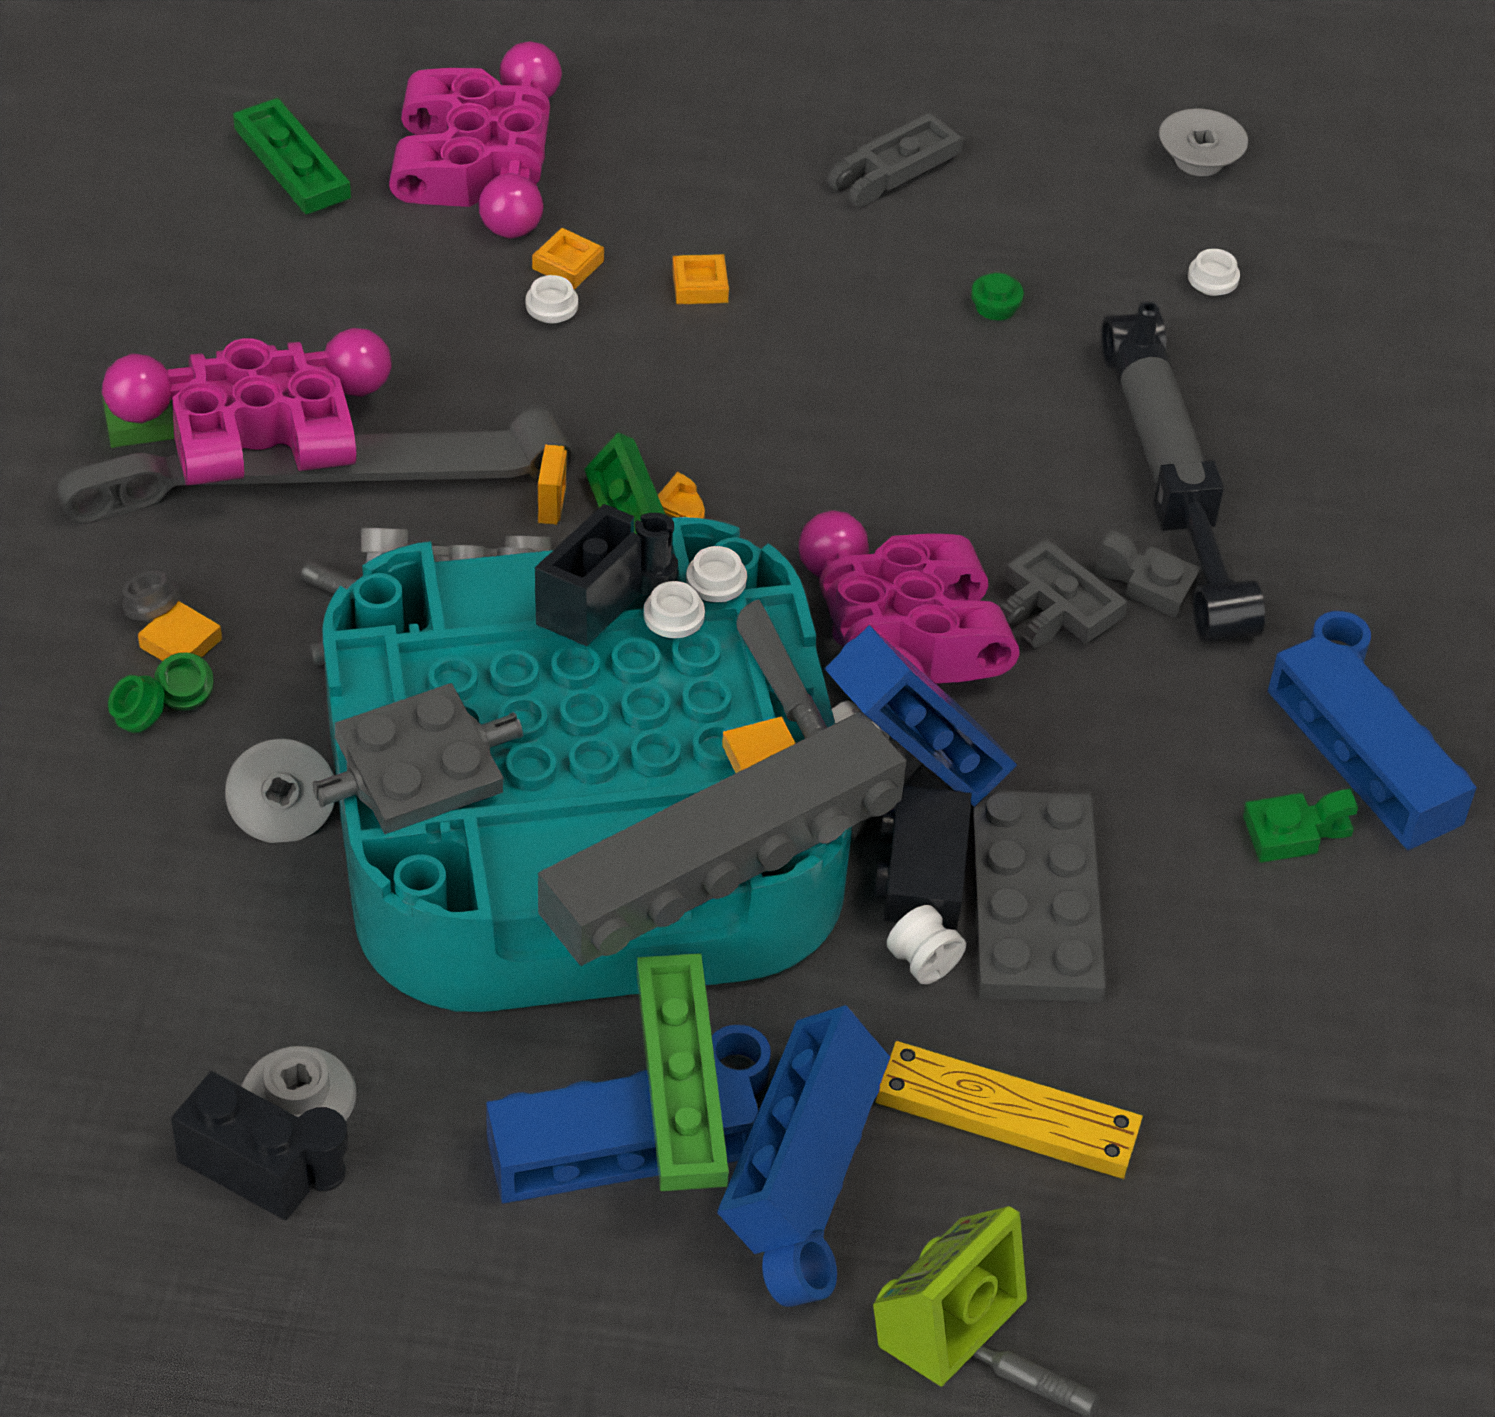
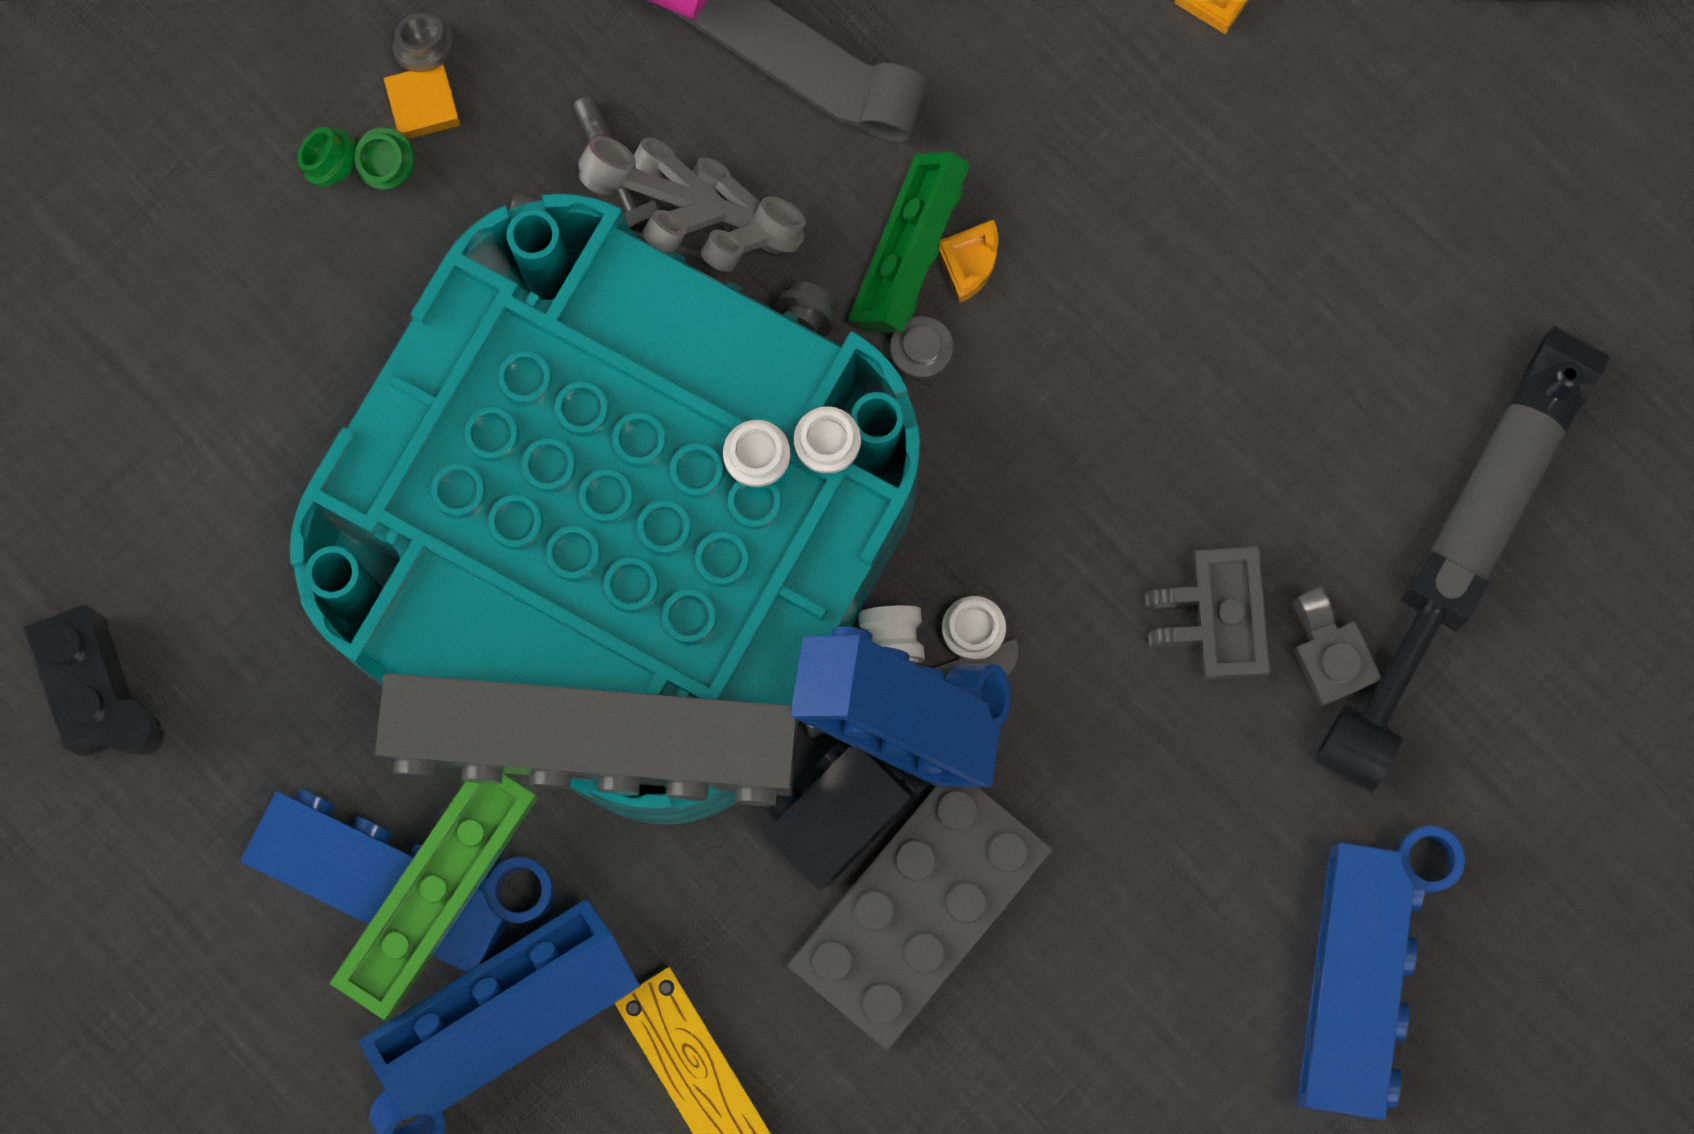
camera: 45 degrees right, 30 degrees up
(265, 812) = (358, 337): light grey piece -> none
(327, 1080) = (206, 647): light grey piece -> none
(418, 758) = (412, 455): dark grey plate -> none
(552, 484) = (862, 159): light orange tile -> none
(602, 571) = (711, 376): black hinge -> none
(756, 742) = (705, 663): light orange tile -> none
(778, 668) = (801, 577): dark grey piece -> none
(914, 593) = (1080, 615): dark pink connector -> none
(926, 944) = (770, 895): white wheel -> none
(997, 296) = (1488, 211): green plate -> none
(1290, 828) = (1202, 1007): green plate -> none

